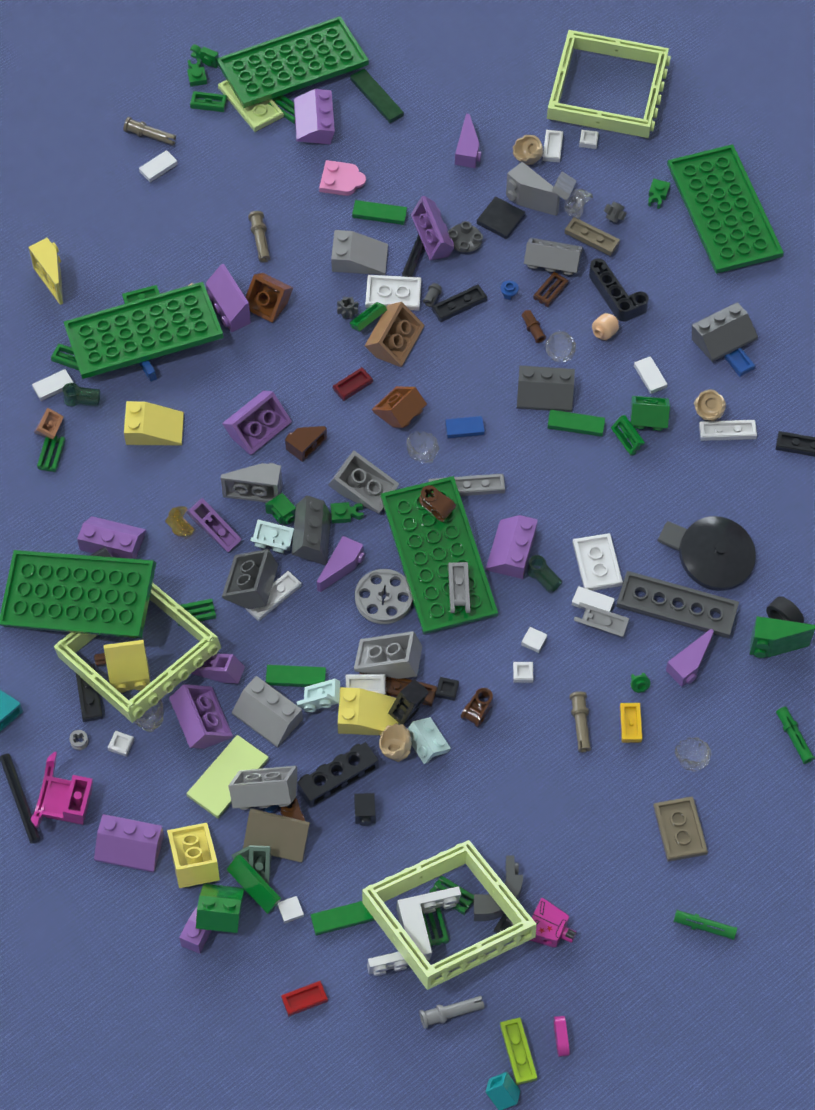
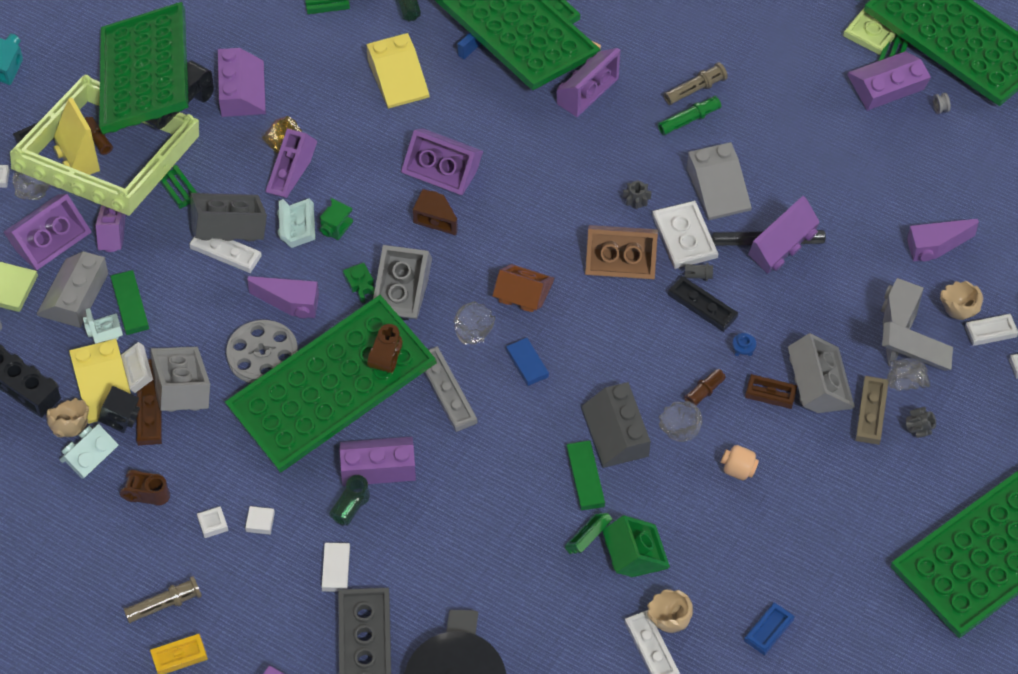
camera: 70 degrees right, 5 degrees down
(253, 483) = (356, 182): light grey slope -> none
(267, 296) = (615, 115): dark orange slope -> none
(286, 244) = (697, 111): none -> green pin
(312, 530) = (314, 253): dark grey slope -> none
(341, 178) = (820, 134): bright pink plate -> none
(349, 96) = (941, 103): none -> light grey bush
(352, 384) = (537, 235): dark red tile -> none
(368, 316) = (633, 216): green tile -> none
(377, 96) = (961, 130): dark green tile -> none
(379, 212) = (790, 179): green tile -> none
(447, 688) = (163, 452): black tile -> none
(459, 586) = (289, 412): light grey hinge -> none
(465, 237) = (799, 278): dark grey dish -> none
(500, 217) = (850, 307): black tile -> none
(597, 562) = (394, 556): white tile -> none
(603, 620) = (310, 583): light grey hinge -> none
(623, 306) = (802, 455): black beam -> none
(640, 683) = (235, 648): green plate -> none
(650, 375) = (694, 535): white tile -> none
(658, 192) = (985, 463): green plate -> none
(724, 332) = (795, 597): dark grey slope -> none

